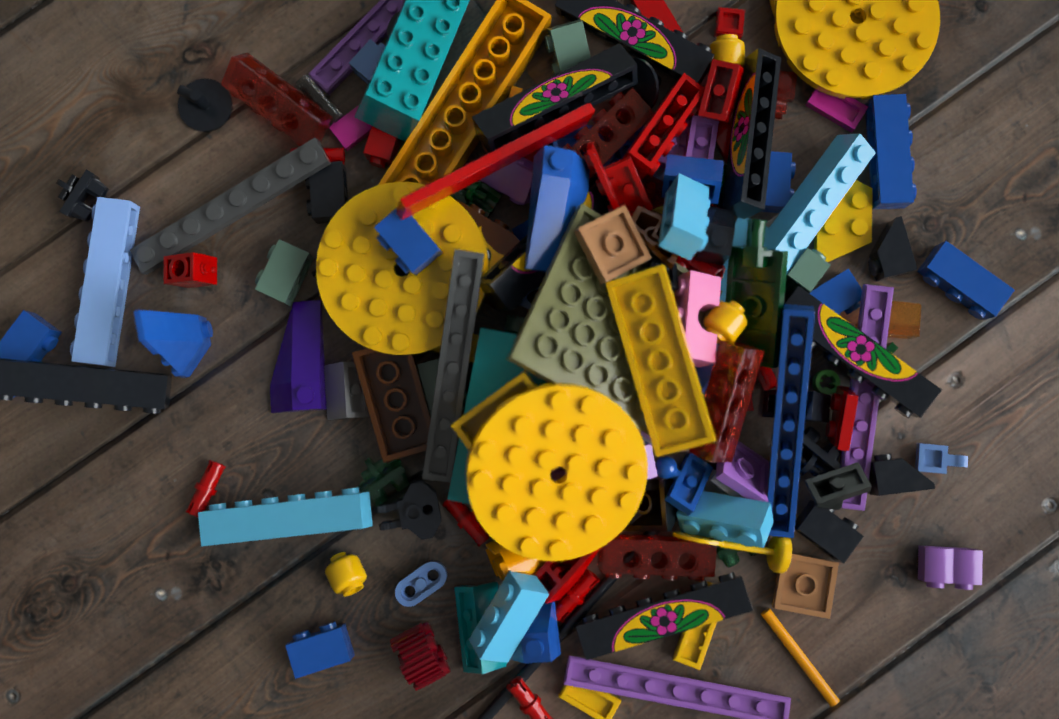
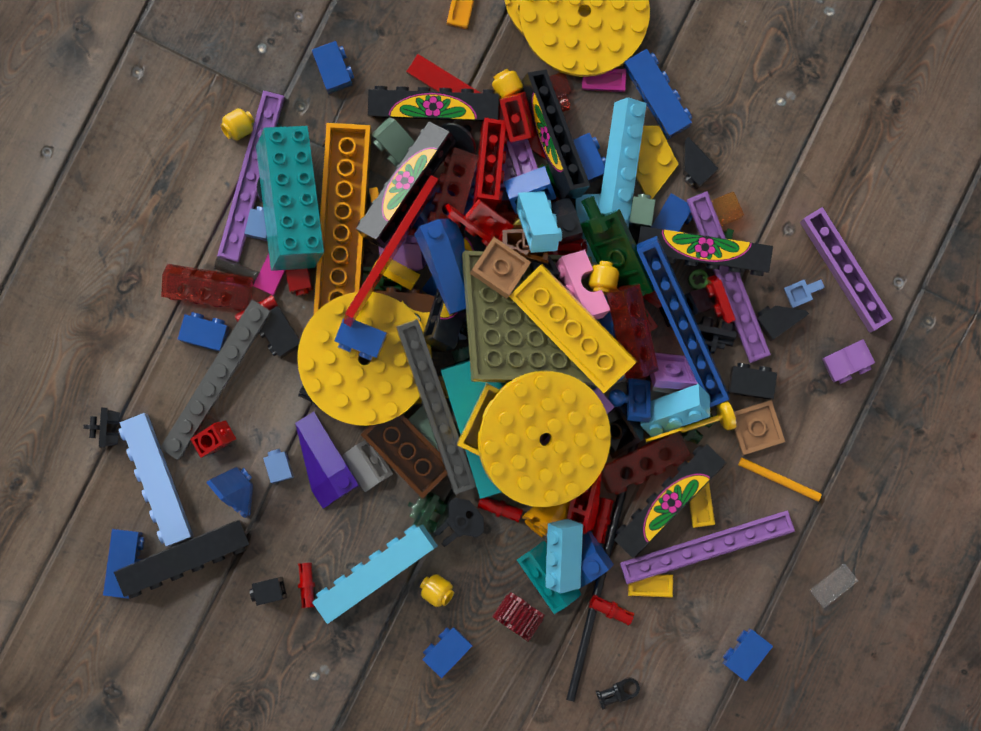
camera: 25 degrees left, 0 degrees up
(156, 473) = (268, 591): none -> black brick
(204, 105) = (154, 316): black shield -> none
(245, 148) = (202, 332): none -> blue brick
(246, 339) = (278, 466): none -> medium blue brick
(283, 272) = (278, 405): sand green brick -> none
(421, 582) = (492, 569): medium blue plate -> none
(495, 197) = (401, 274): none -> yellow tile
(729, 21) = (497, 59): red tile -> none
(837, 485) = (738, 350): pearl dark grey slope -> none
(965, 281) = (757, 158): blue brick -> none
(1003, 462) = (846, 270): none -> medium lavender brick

